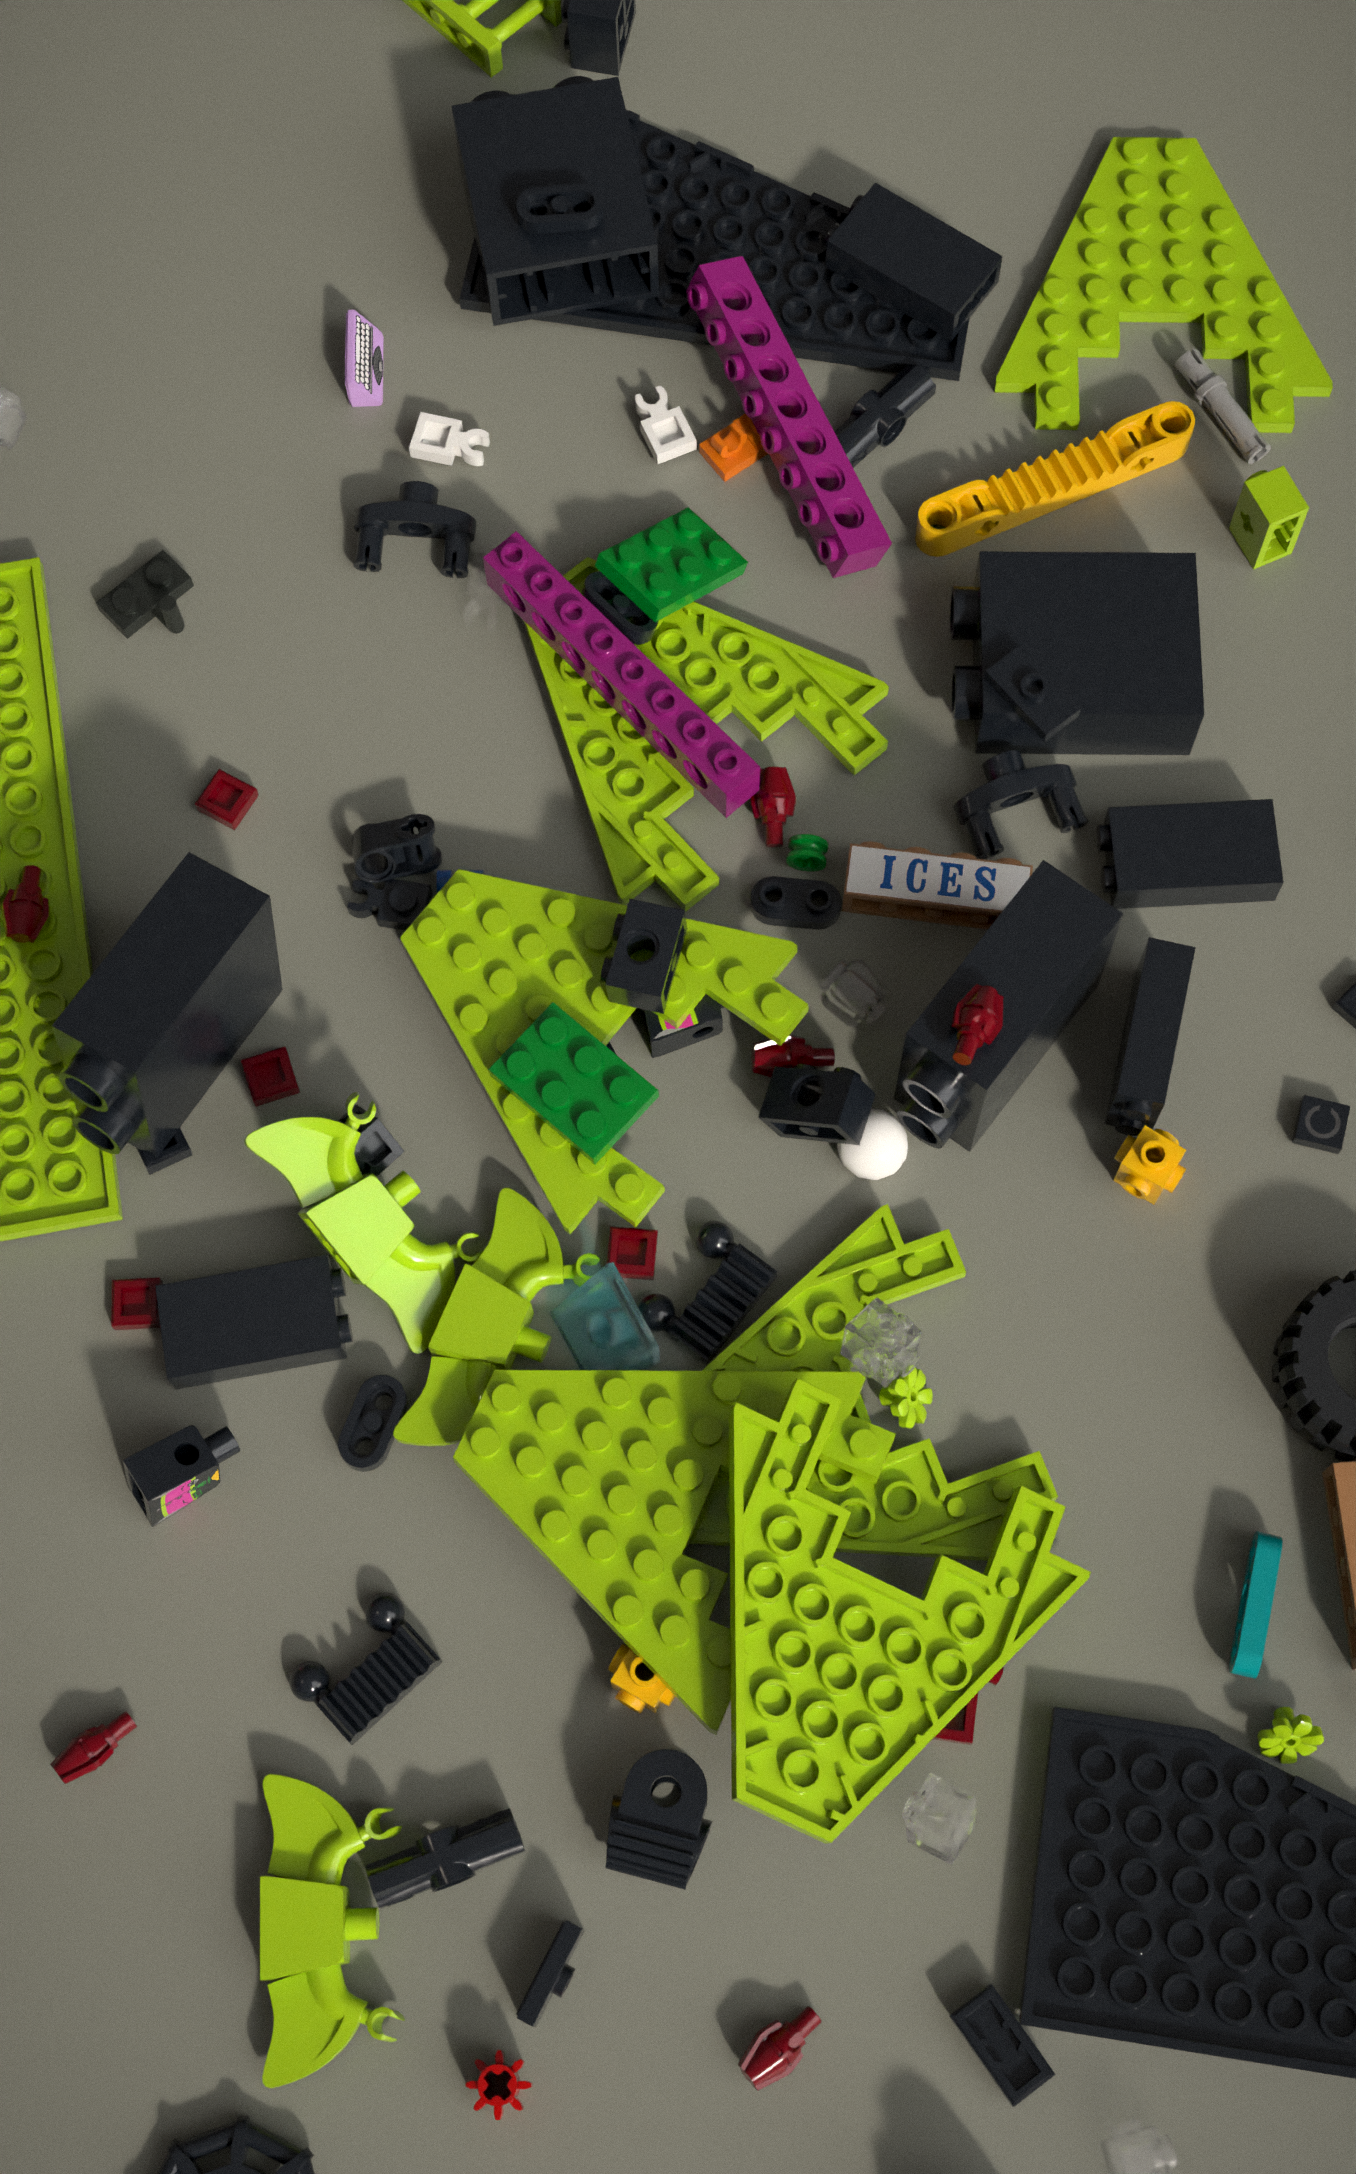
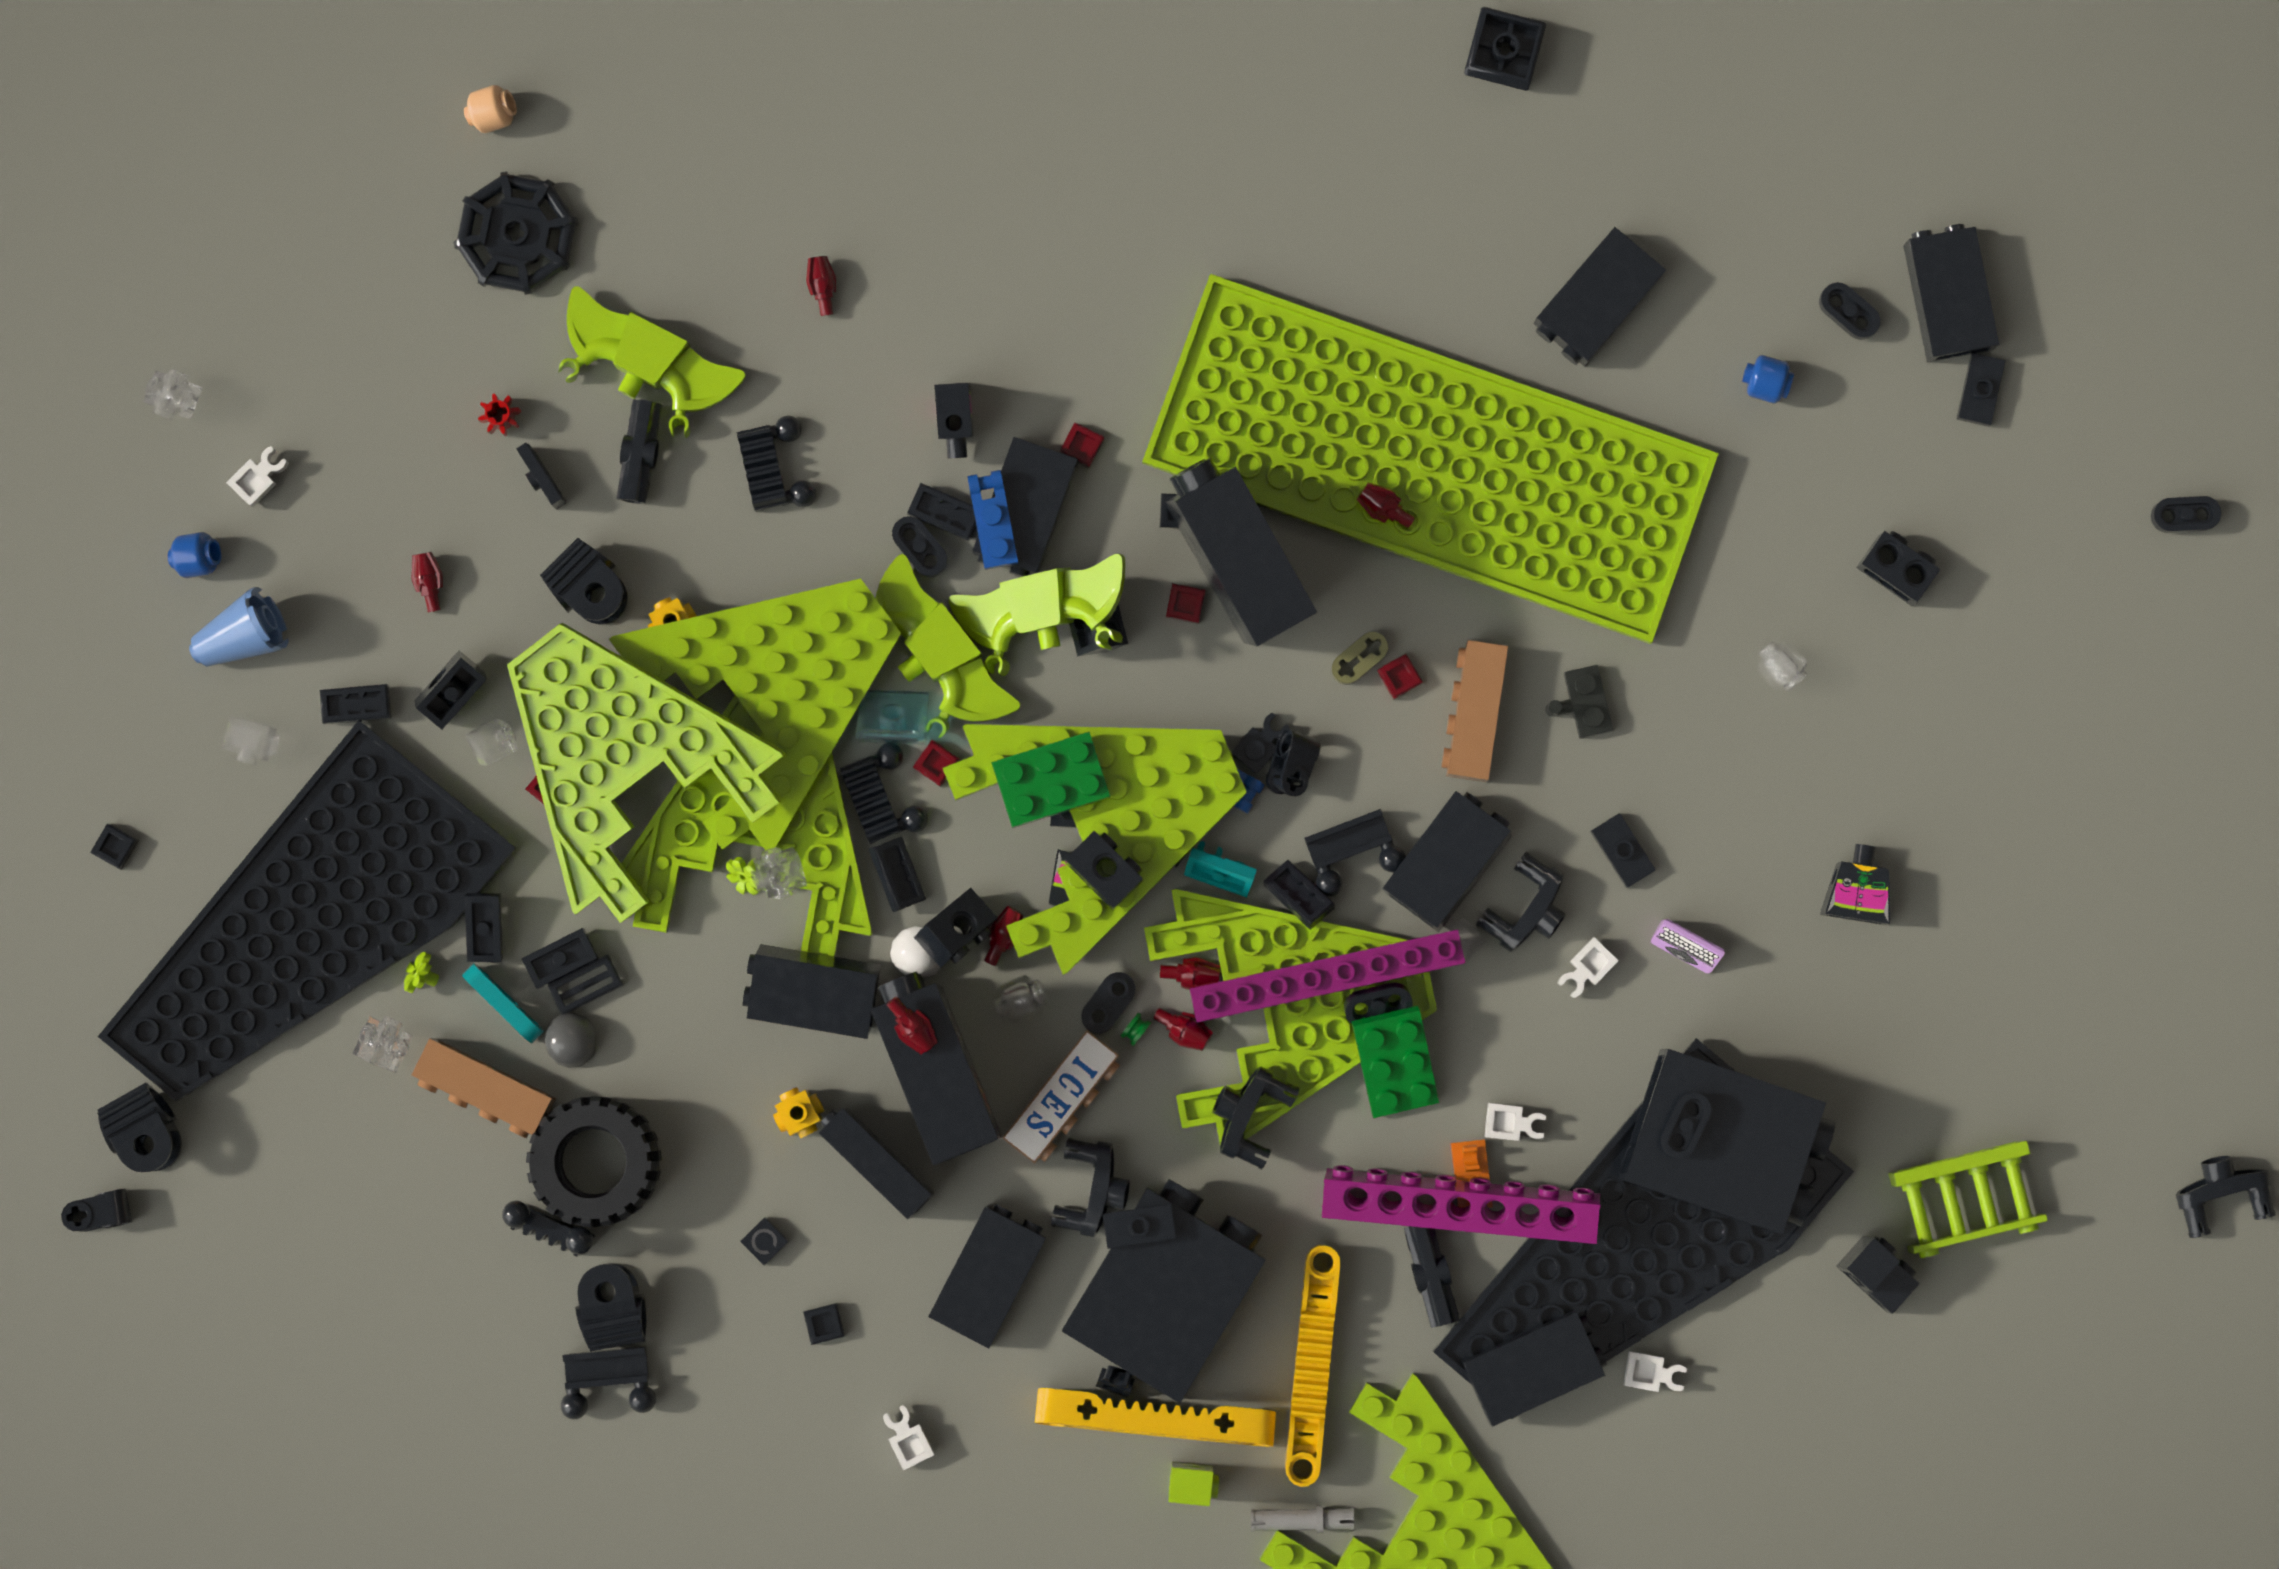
camera: 120 degrees right, 15 degrees up
(204, 233) = (1859, 890): none -> torso
(220, 693) = (1476, 711): none -> medium nougat brick
(232, 842) = (1354, 652): none -> olive beam
(288, 1339) = (993, 521): none -> blue plate
(295, 476) = (1622, 850): none -> black plate
(311, 1418) = (943, 512): none -> black plate
(410, 630) = (1448, 860): none -> black brick
(453, 748) = (1350, 840): none -> black gear
(544, 762) = (1299, 894): none -> black plate
(567, 848) = (1219, 872): none -> teal plate
(705, 828) = (1192, 973): none -> dark red piece
(794, 1217) = (897, 874): none -> black plate
(826, 683) = (1238, 1108): none -> black connector
(840, 173) = (1647, 1372): none -> white plate
(906, 1918) = (450, 690): none -> black brick
(997, 1229) = (811, 991): none -> black brick
(1154, 1566) = (560, 958): none -> black plate
(1155, 1534) = (611, 972): none -> black tile
(1179, 1685) = (483, 927): none -> black plate
(1180, 528) = (1249, 1427): none -> yellow gear
(1212, 657) = (1115, 1380): none -> black plate
(1242, 1494) = (570, 1040): none -> dark grey hair

